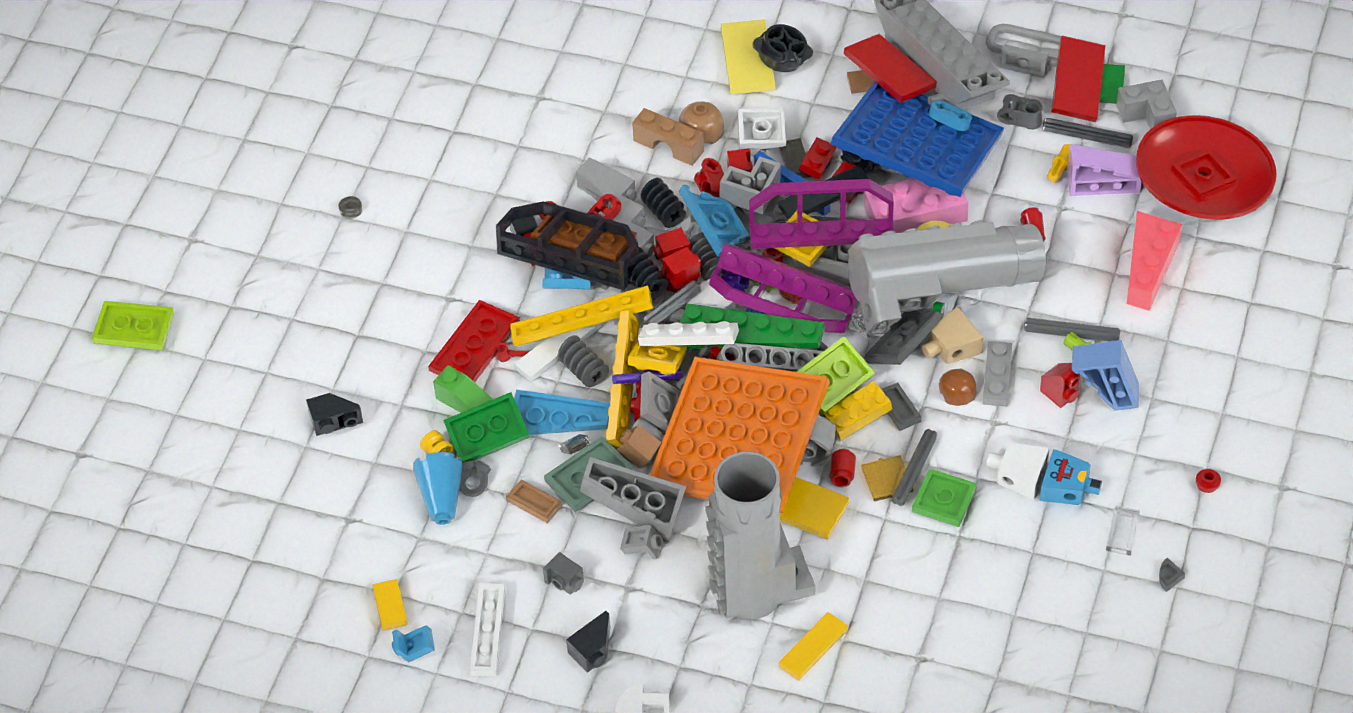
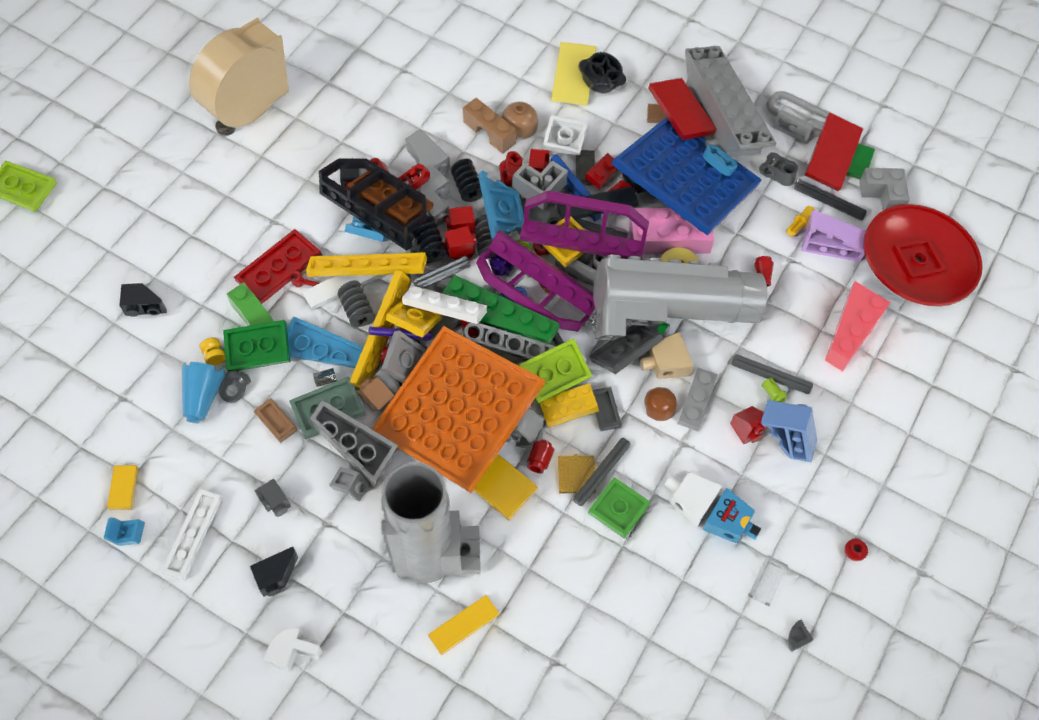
camera: 10 degrees right, 10 degrees up
(362, 140) = (240, 74): none -> tan brick

